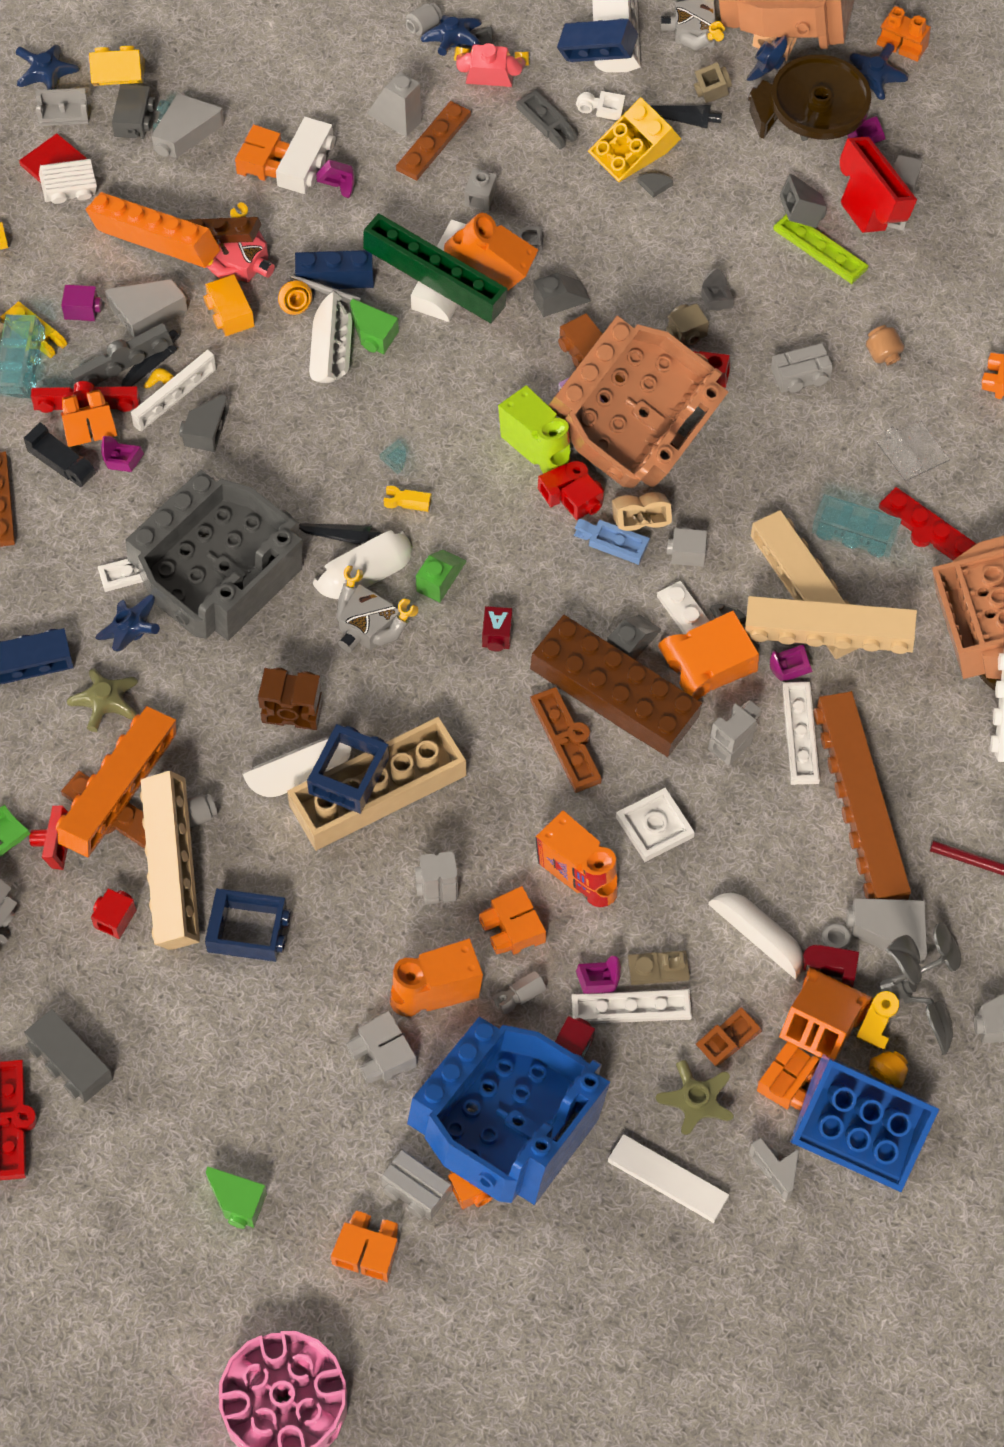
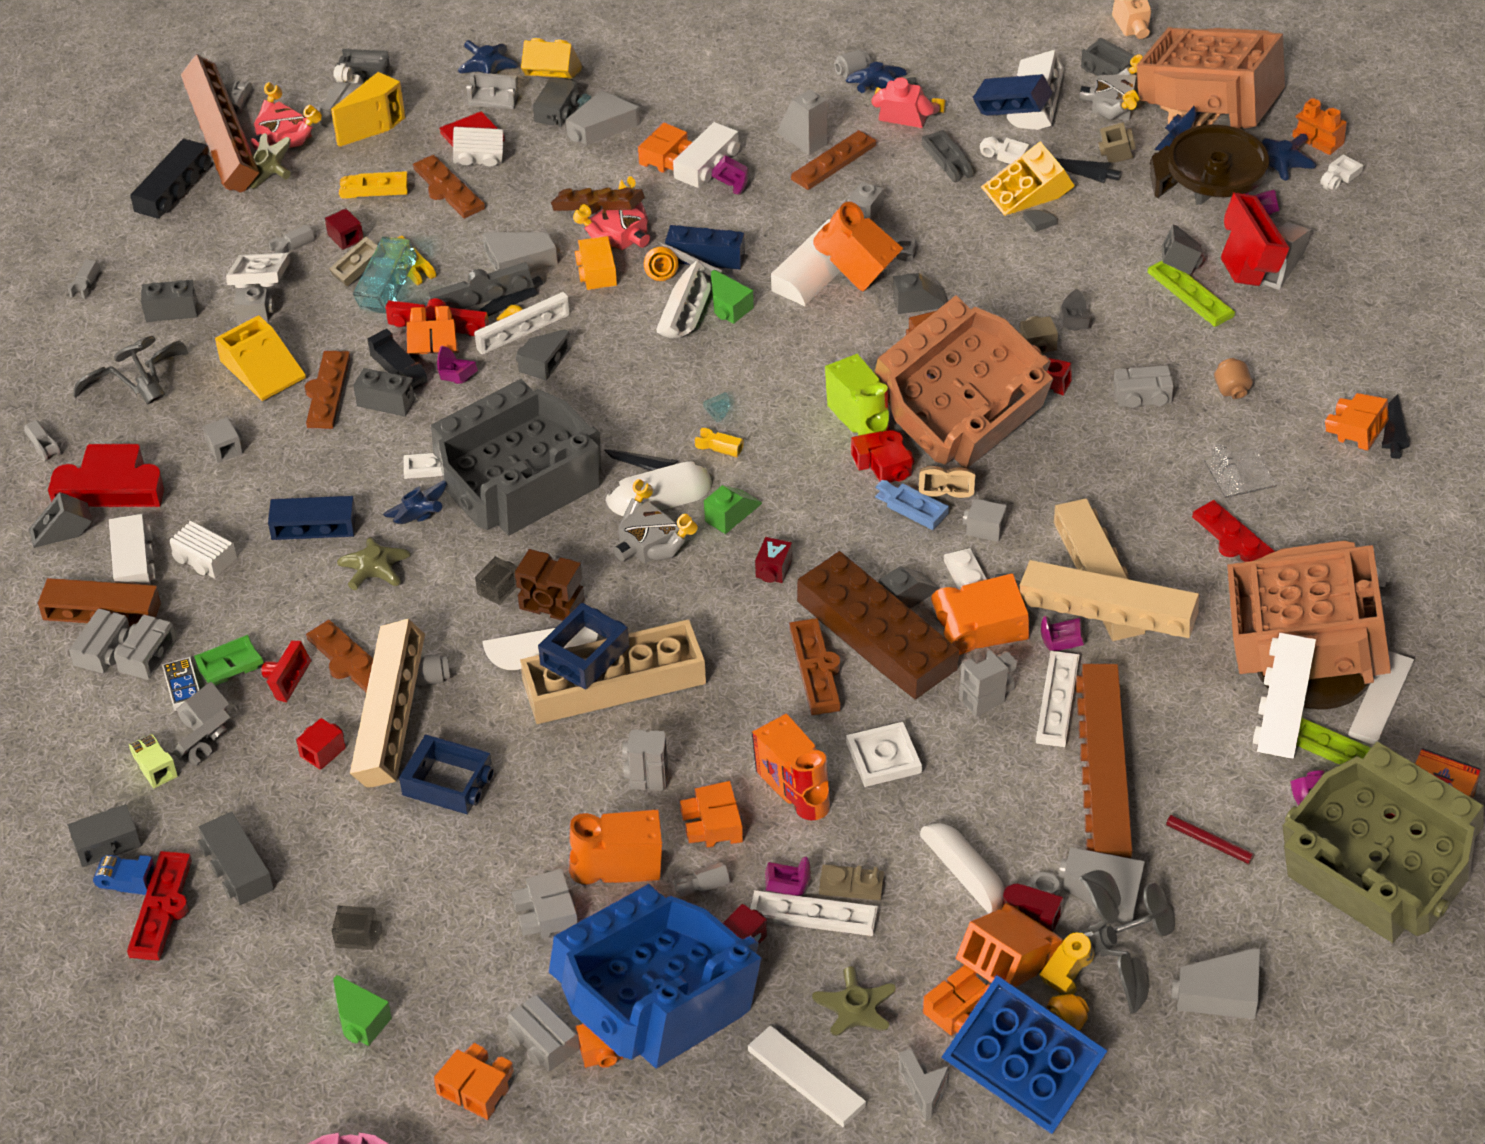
camera: 15 degrees right, 15 degrees down
(48, 232) = (446, 185): none -> dark orange hinge
(57, 496) = (384, 392): none -> dark grey hinge
(81, 303) = (458, 243): magenta brick -> none
(116, 781) = (357, 629): orange brick -> none
(153, 229) = (541, 188): orange brick -> none
(208, 1108) = (356, 927): none -> clear smoke brick
(234, 697) = (496, 580): none -> clear smoke brick
(434, 268) = (798, 250): dark green brick -> none
(729, 1037) = (899, 961): dark orange slope -> none
(856, 526) = (1163, 526): clear light blue brick -> none
(934, 81) = (1340, 170): none -> white plate

